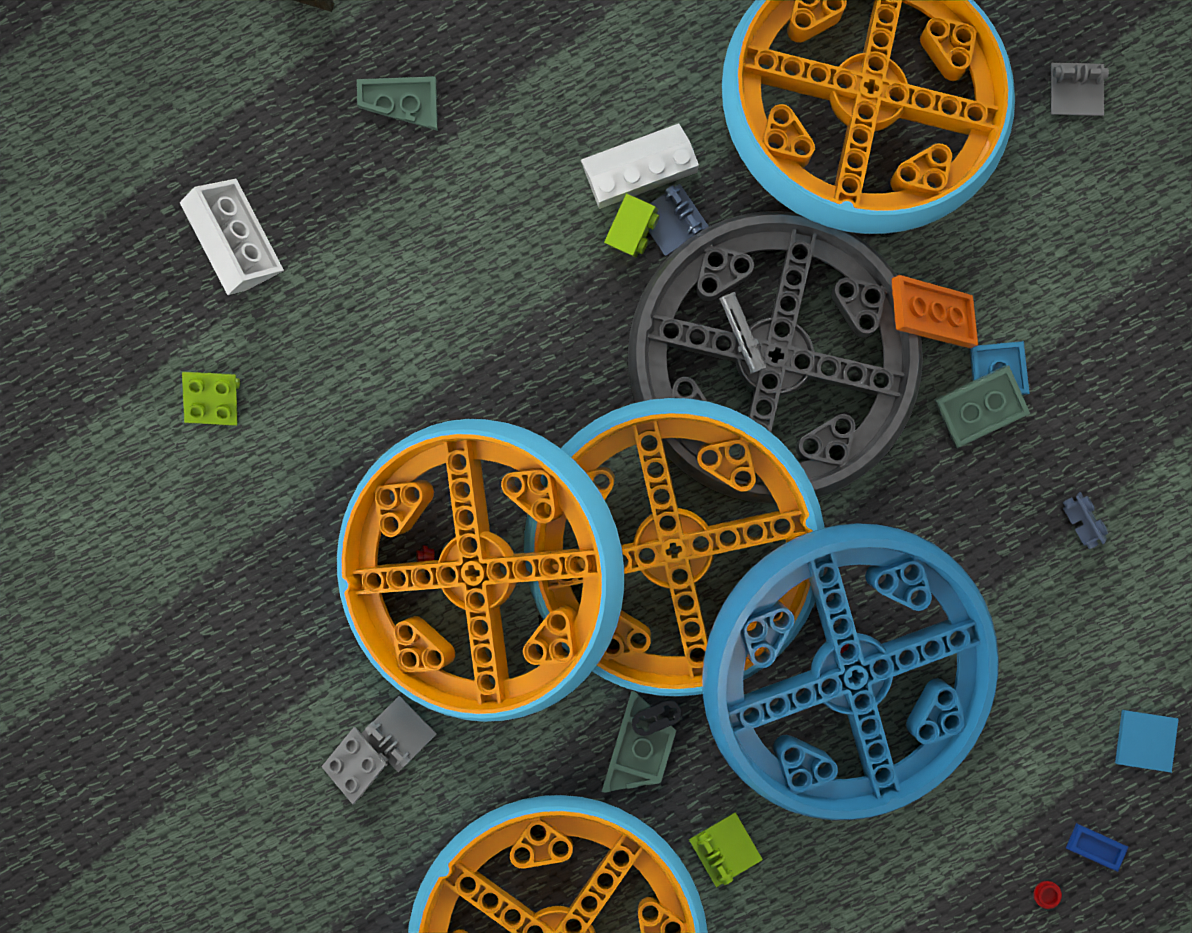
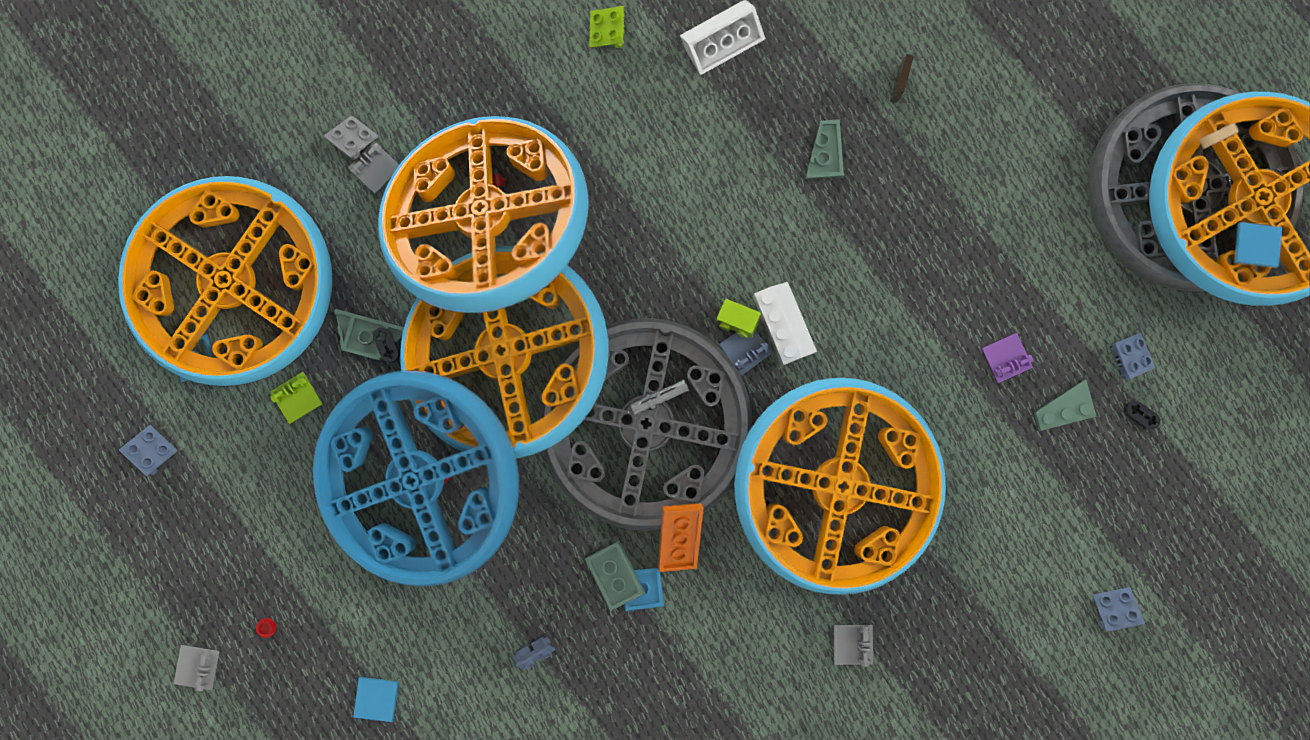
camera: 85 degrees right, 0 degrees up
(1097, 847) = (300, 663): blue tile -> none

